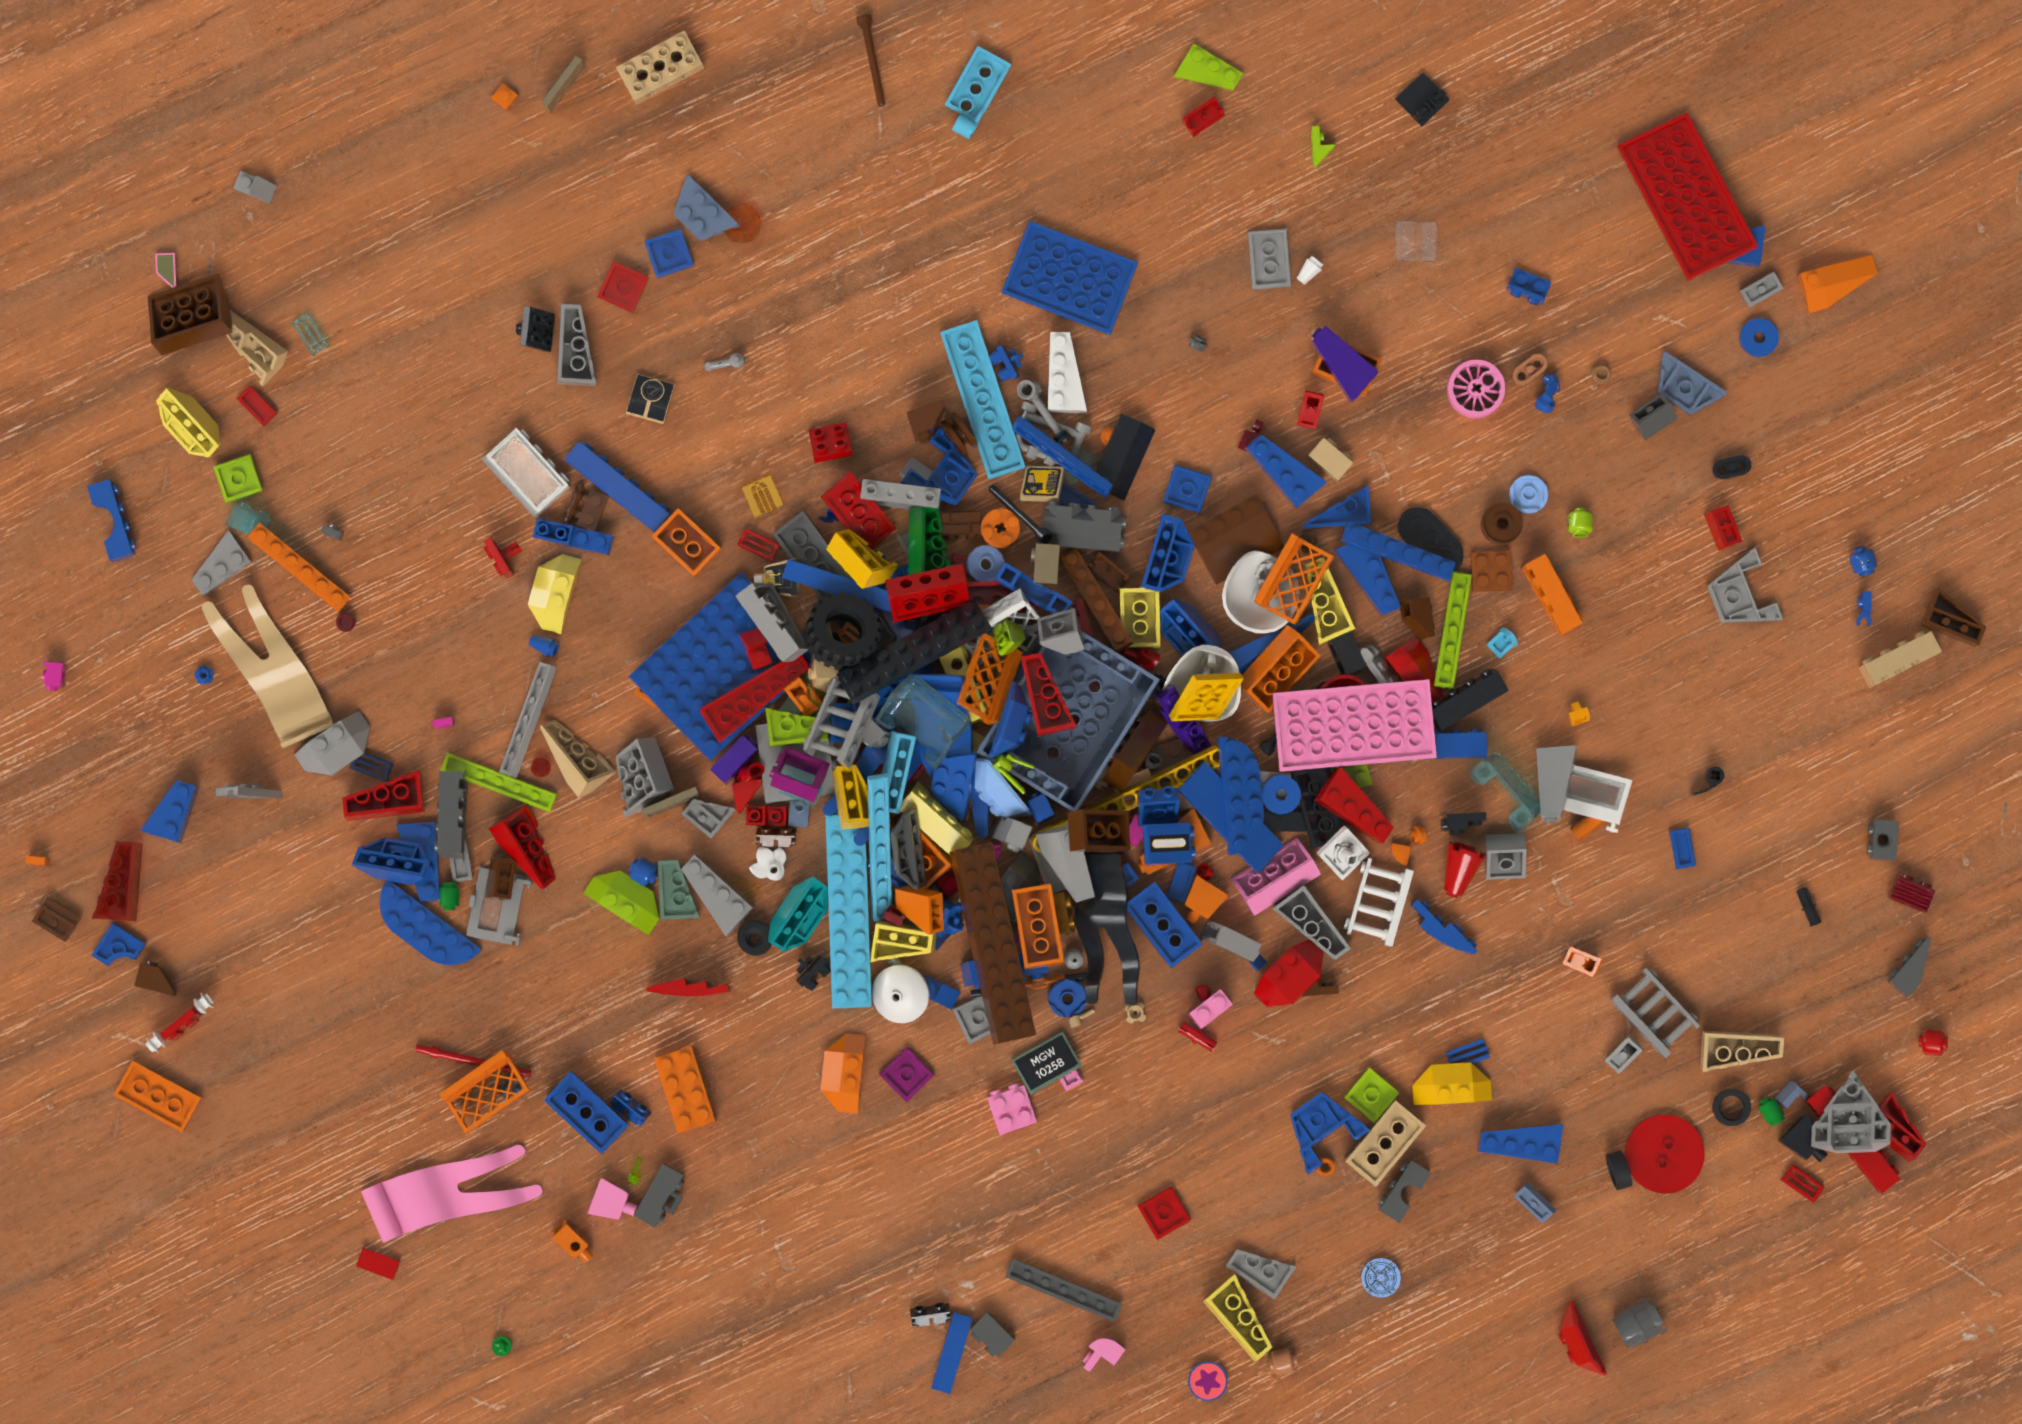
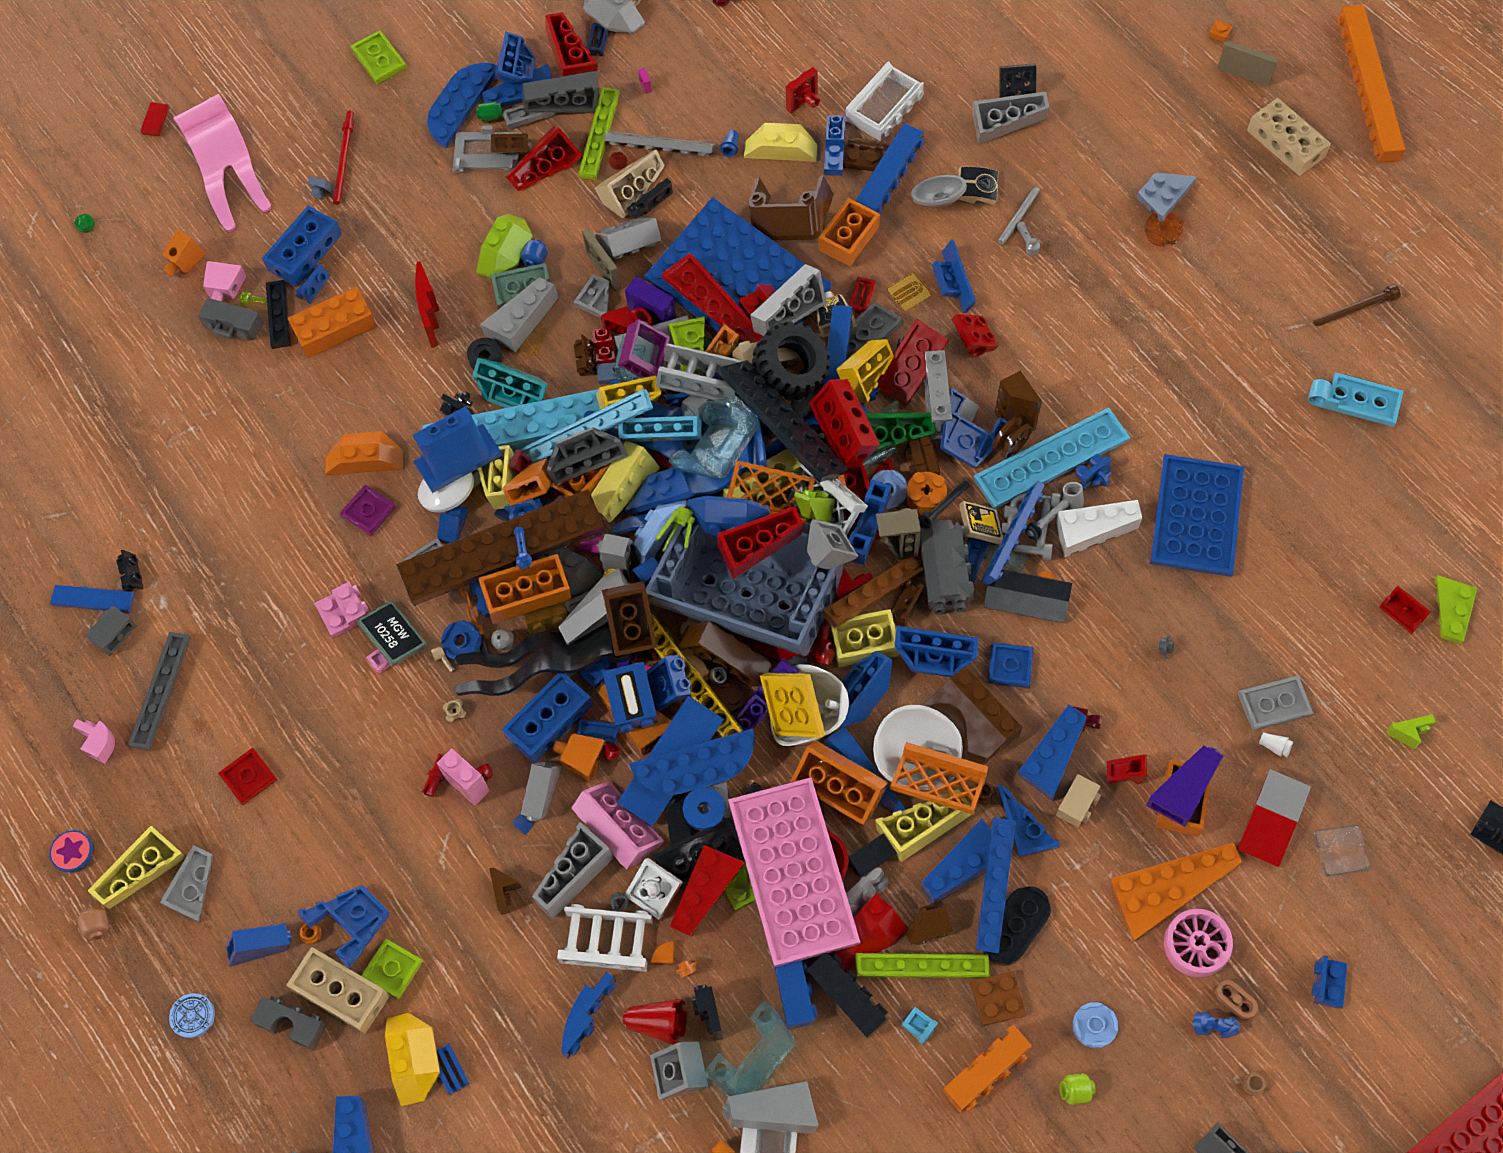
camera: 80 degrees right, 20 degrees down
(344, 1010) = (378, 57): none -> lime tile
(480, 1075) = (323, 154): orange fence -> none
(600, 743) = (651, 199): none -> black hinge
(623, 287) = (1075, 145): red plate -> none
(647, 441) = (939, 191): none -> light grey dish
(658, 1146) = (278, 314): none -> black tile
(668, 253) = (1117, 175): blue plate -> none
(675, 589) = (790, 220): none -> reddish brown windscreen
(696, 366) = (1015, 220): none -> light grey bar
(759, 450) = (953, 278): none -> blue bracket
(767, 861) = (558, 356): white plate -> none
(880, 976) = (453, 449): none -> blue windscreen
(1016, 922) = (523, 560): none -> blue piece
(1291, 975) = (512, 856): red wedge -> none
(1328, 1213) = (257, 943): none -> blue slope
(1347, 882) = (624, 901): none -> dark grey hinge
(1377, 292) = (1274, 818): none -> slope
(1422, 408) = (1162, 889): none -> orange wing
(1493, 532) = (1064, 989): reddish brown wheel -> none
(1578, 714) = (855, 1126): light orange tile -> none

